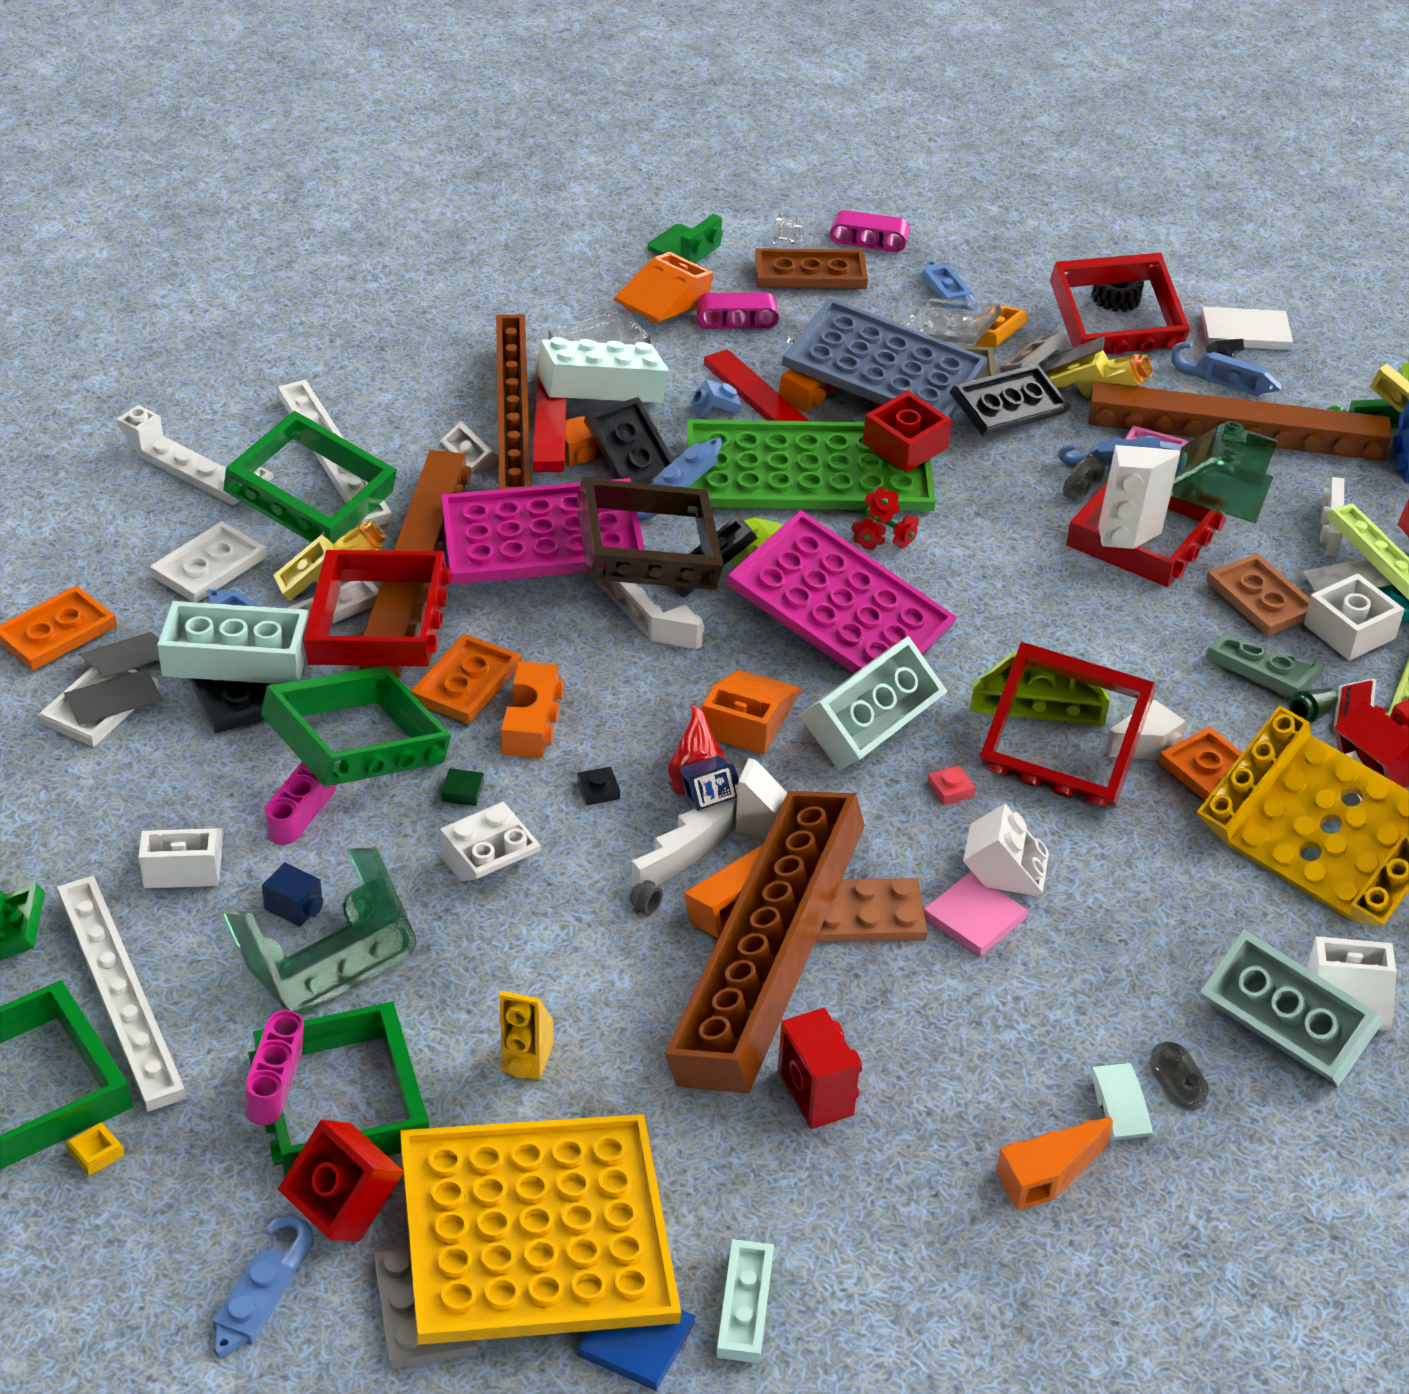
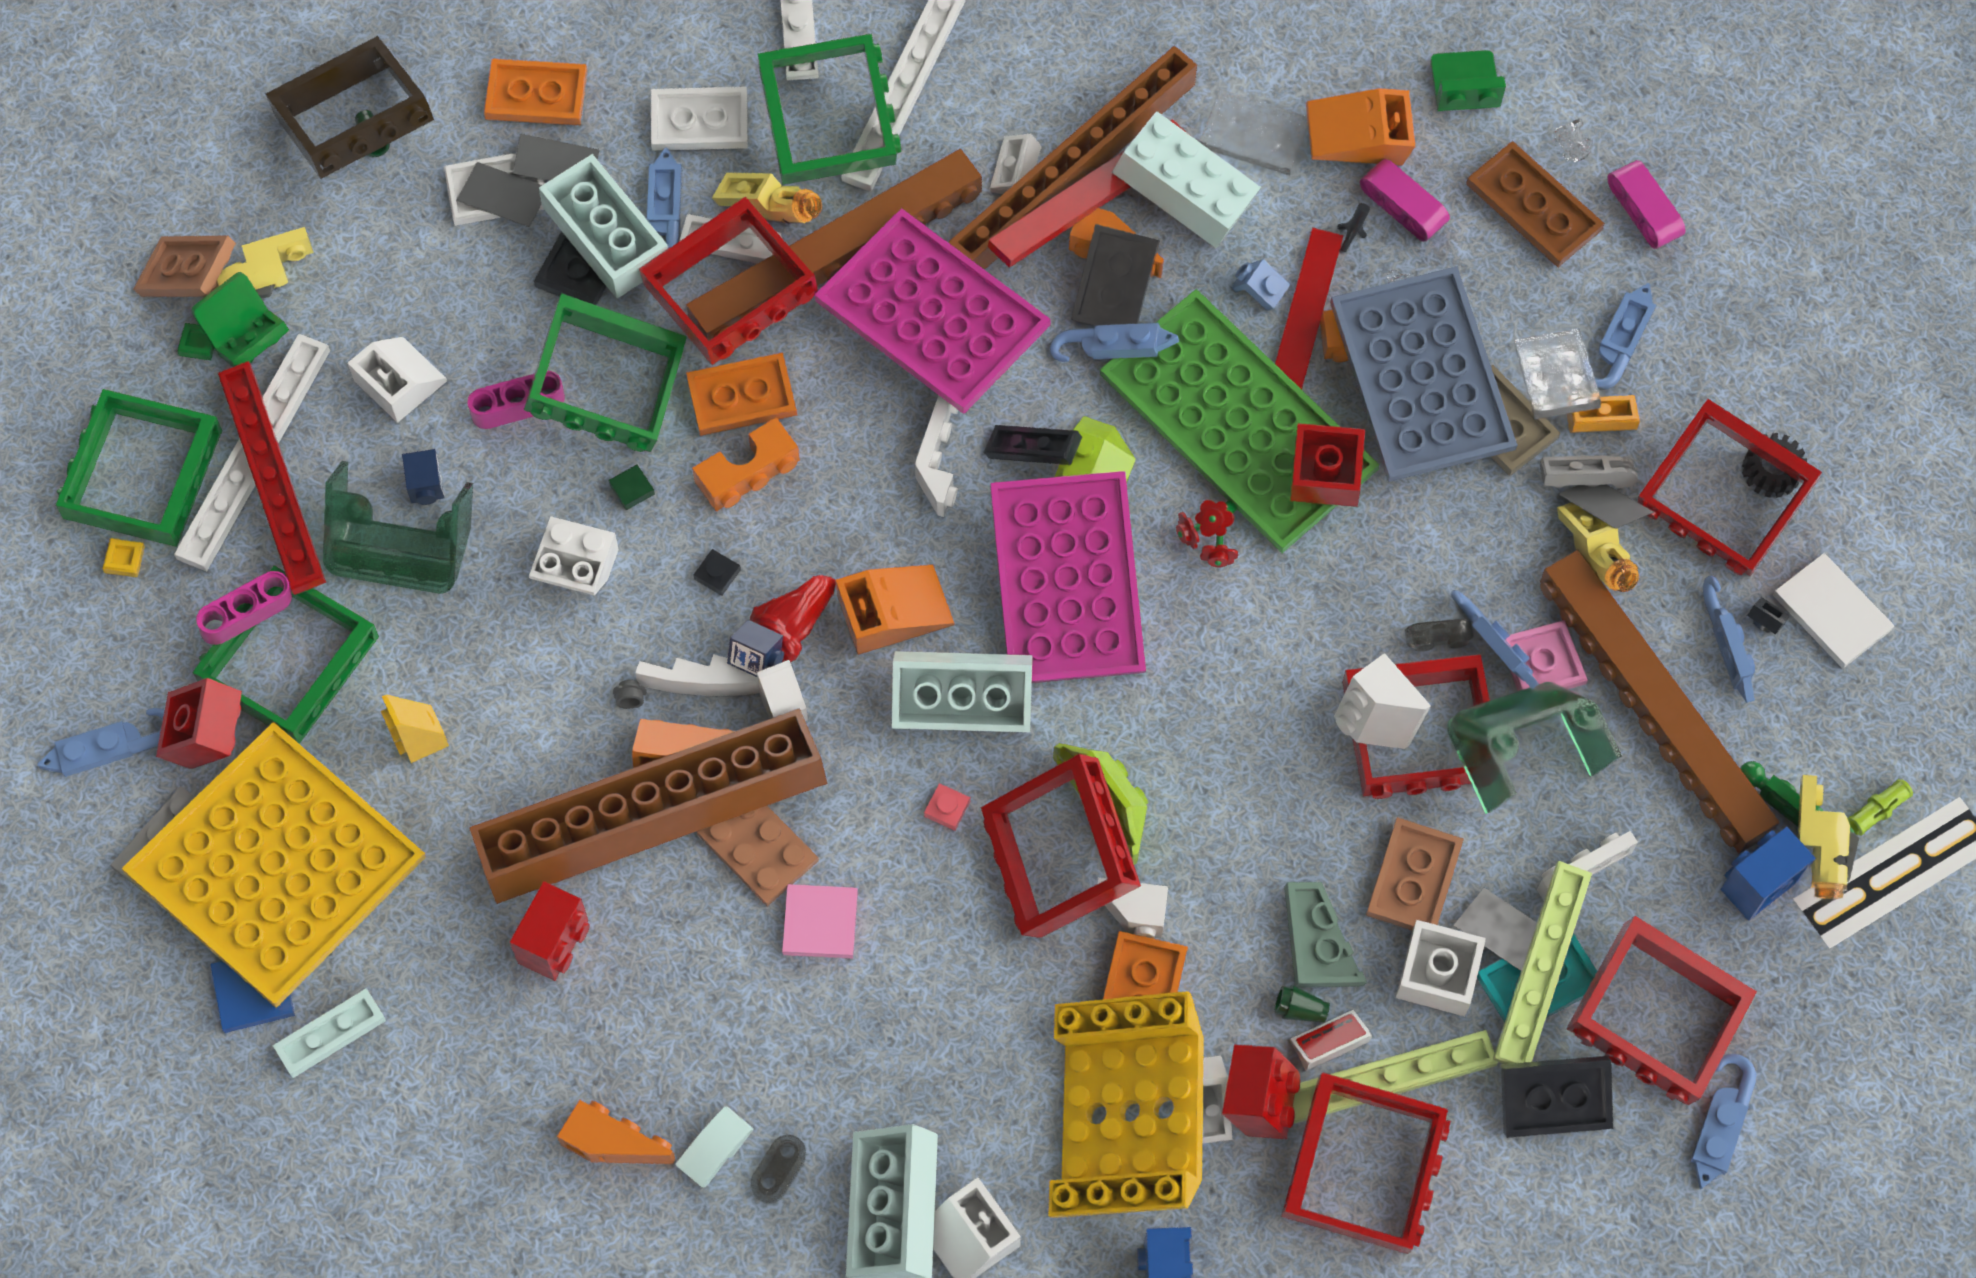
camera: 50 degrees right, 25 degrees up
(163, 978) = (271, 478): none -> red tile
(646, 565) = (948, 429): dark brown window -> none
(728, 338) = (1354, 225): none -> black bar
(1006, 853) = (888, 902): white slope -> none
(1009, 399) = (1485, 502): black tile -> none

